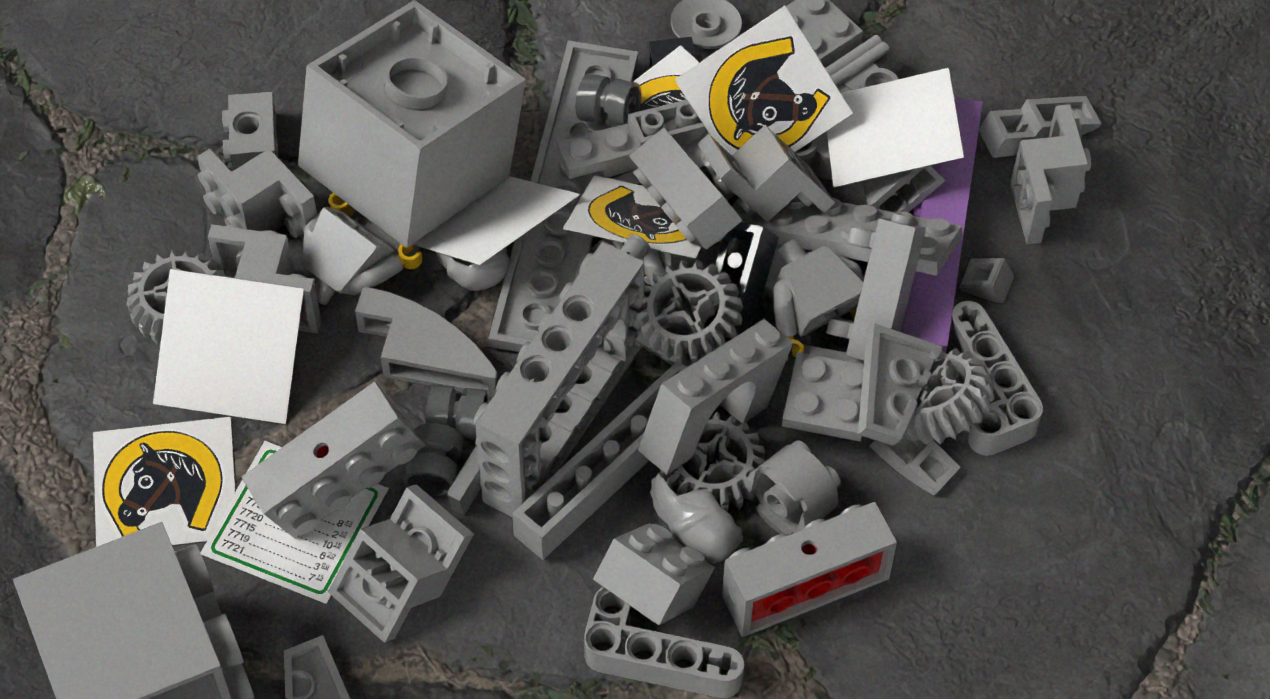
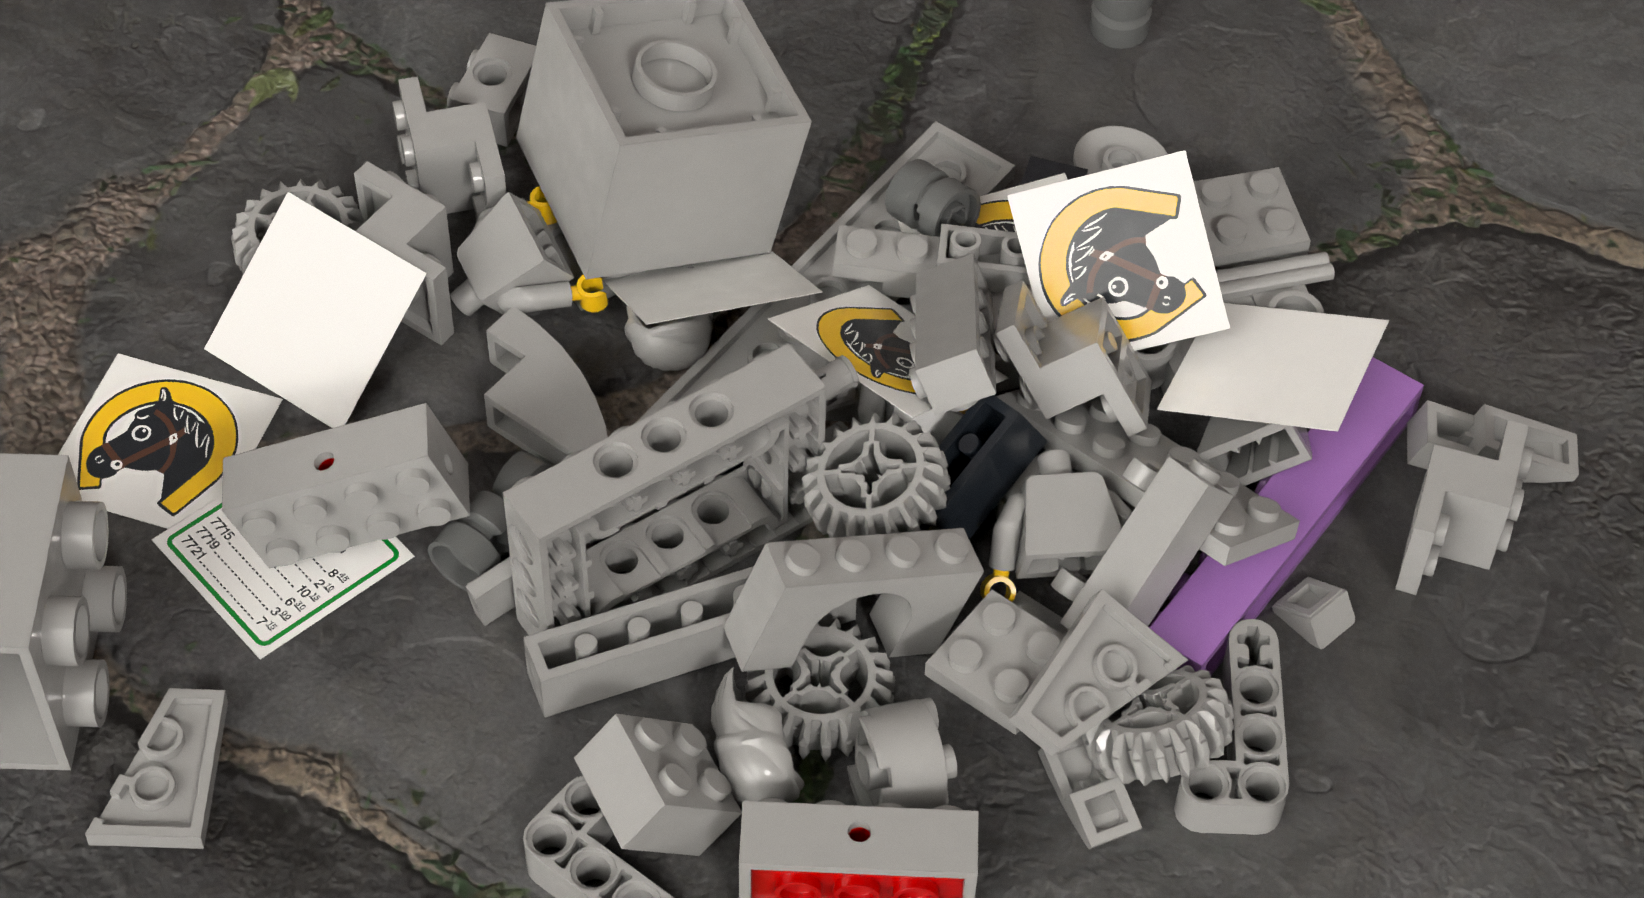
camera: 25 degrees right, 5 degrees down
(400, 563) = (362, 643): light grey bracket -> none

